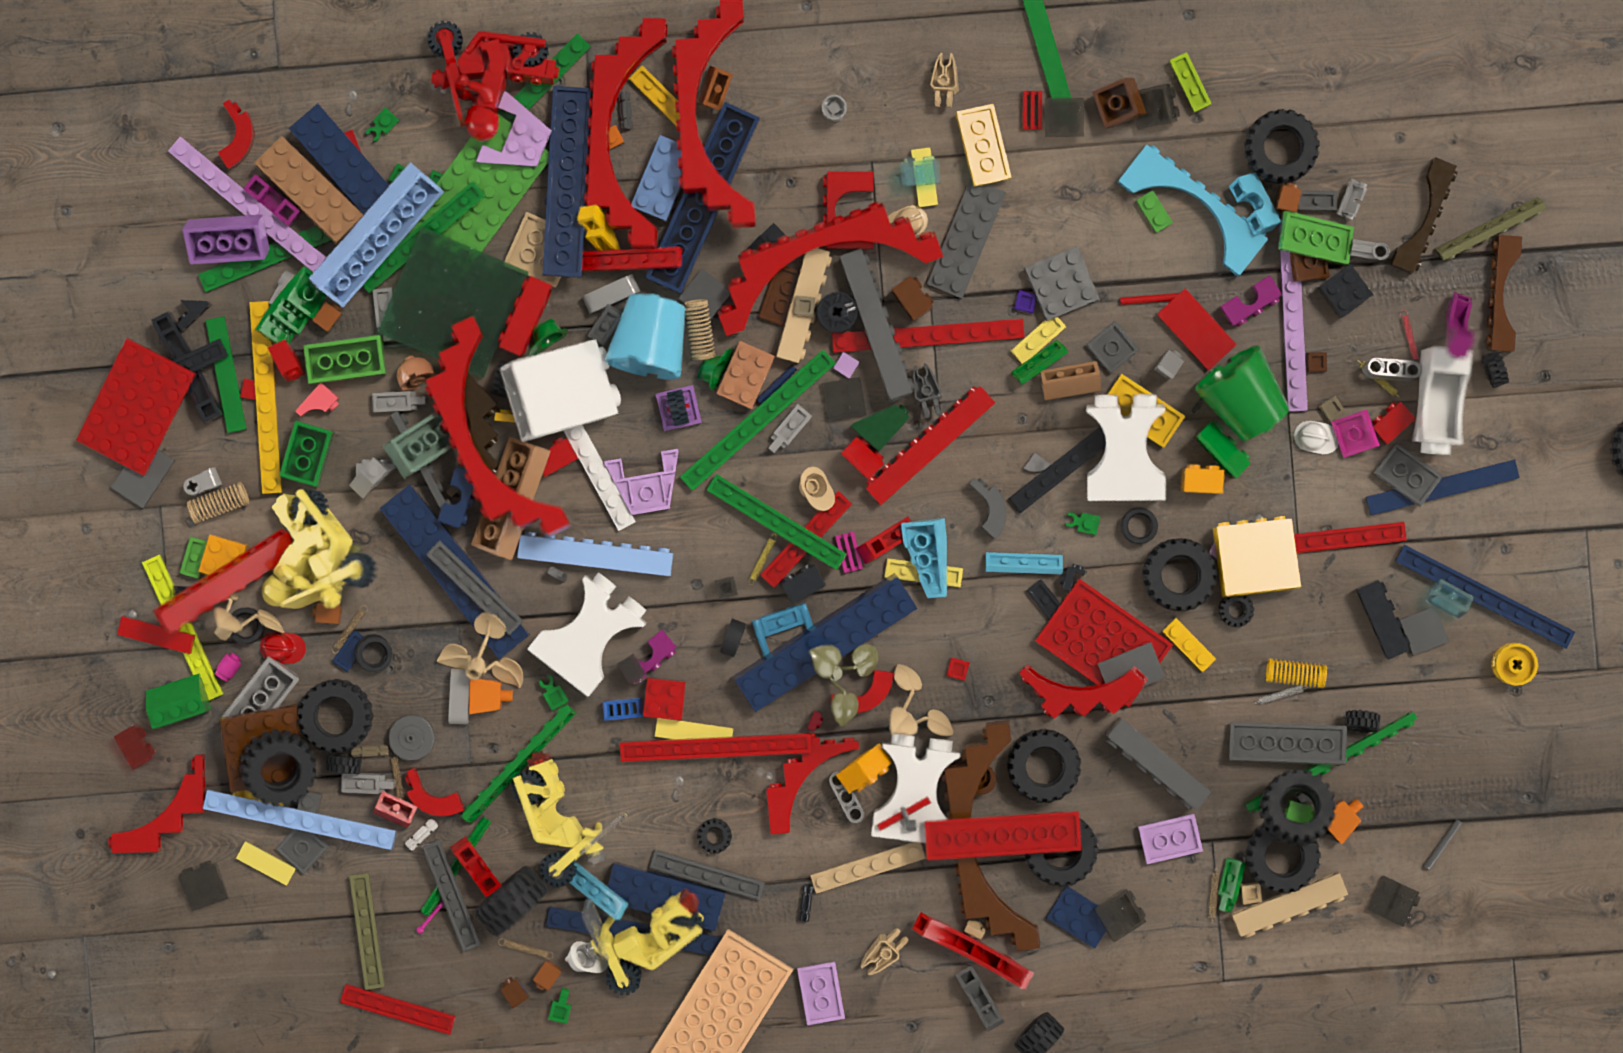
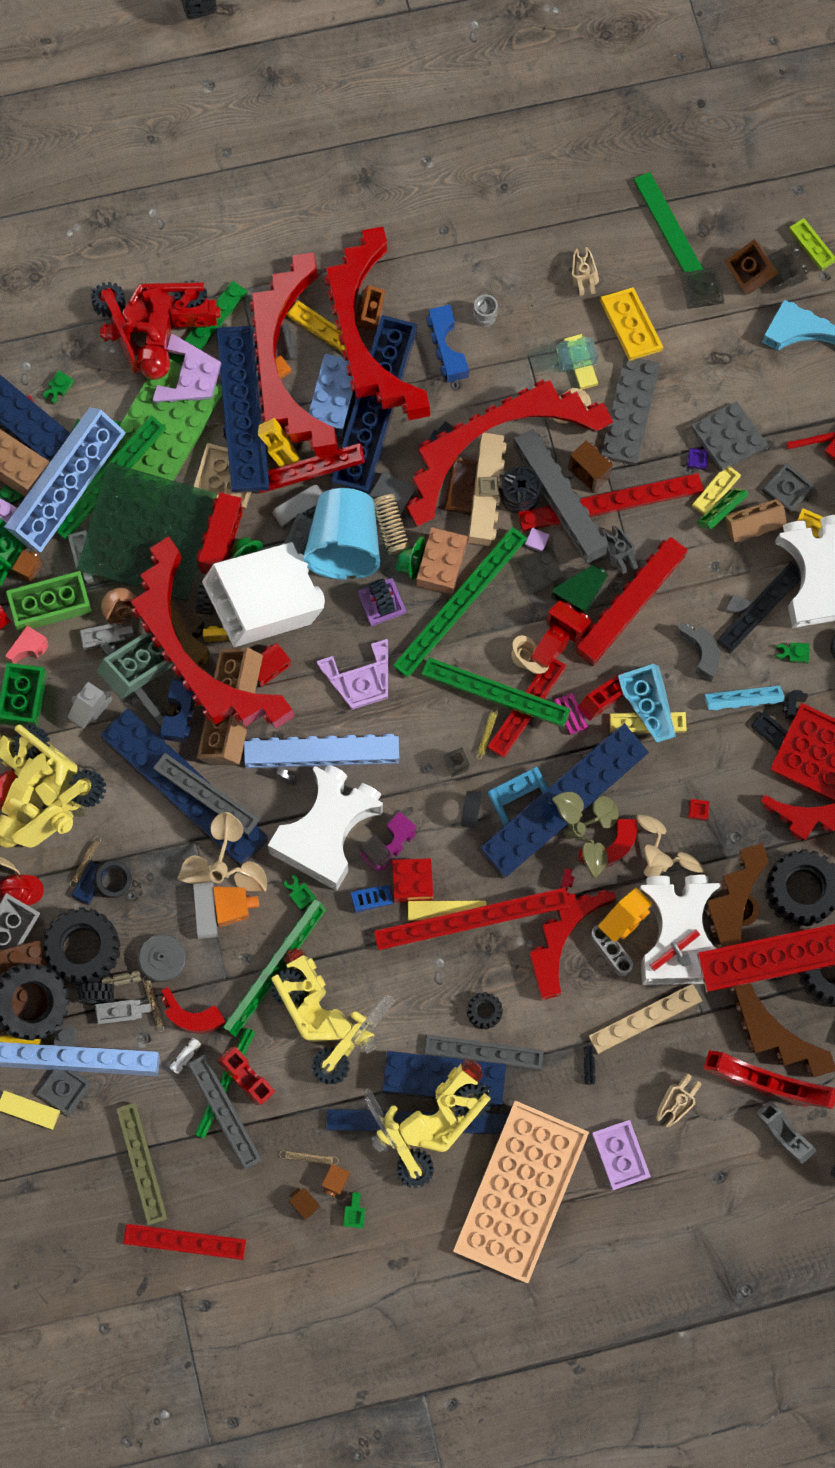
camera: 10 degrees left, 15 degrees down
(327, 615) = (61, 847): dark orange brick -> none
(395, 809) = (154, 1032): red brick -> none
(420, 929) = (197, 1154): dark pink hinge -> none
(511, 901) = (287, 1102): black tyre -> none
(582, 962) = (369, 1158): white piece -> none
(598, 892) = (377, 1082): medium azure plate -> none
(600, 477) = (315, 678): white plate -> none
(776, 384) = (473, 566): dark blue piece -> none
(789, 428) = (492, 605): light grey hinge -> none
(791, 163) = (454, 364): none -> blue arch
(803, 584) = (532, 746): black brick -> none
(838, 184) = (501, 378): red arch -> none
(839, 483) = (551, 645): none -> red slope
(975, 929) = (766, 1063): tan plate -> none
(1032, 110) = (668, 275): red tile -> none
(1154, 211) = (802, 361): bright green plate -> none

